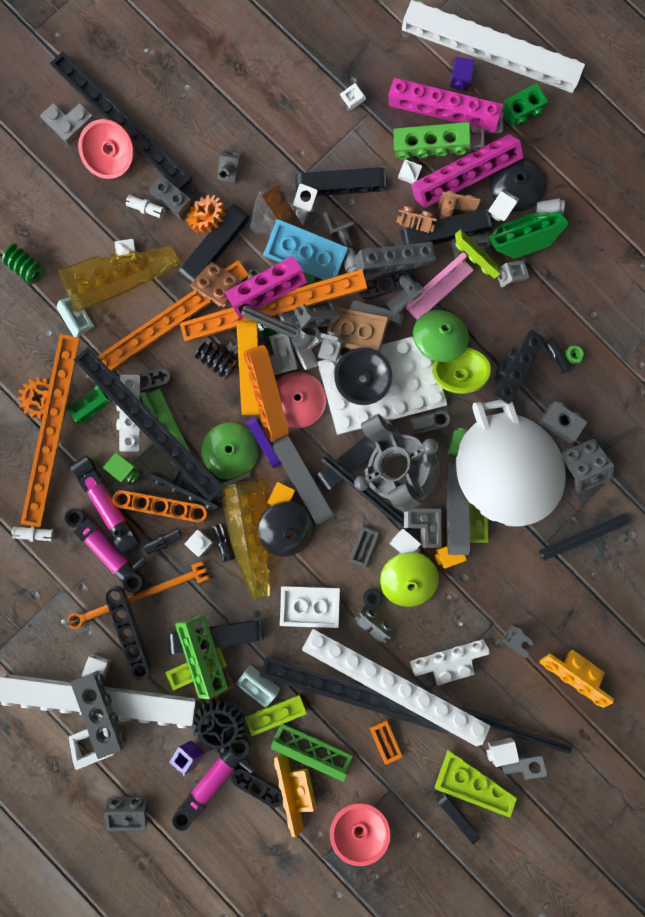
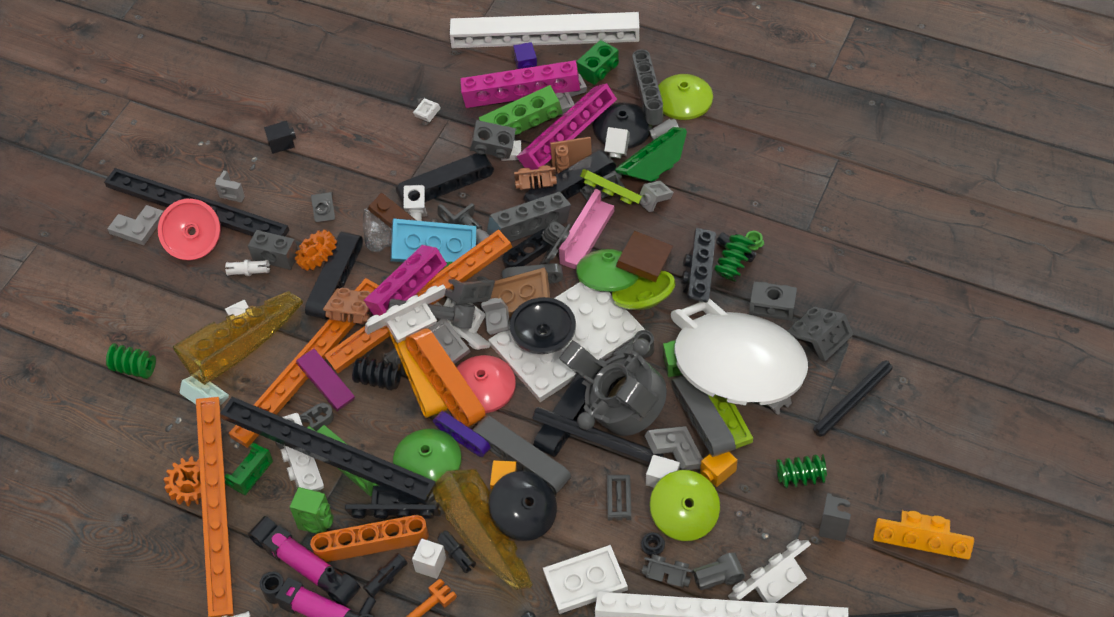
camera: 15 degrees left, 30 degrees down
(152, 114) = (229, 189): none -> light grey bracket
(173, 347) = (325, 379): none -> magenta tile
(215, 74) = (280, 137): none -> black brick
(254, 333) = (408, 317): none -> white bracket
(397, 156) = (493, 136): none -> dark grey brick
(417, 643) = (725, 570): none -> dark grey piece
(476, 337) = (644, 256): none -> reddish brown tile
(512, 586) = (801, 470): none -> green piece
(551, 369) = (733, 256): none -> green piece
(560, 129) = (647, 87): none -> dark grey beam
(577, 181) = (685, 96): none -> lime dish

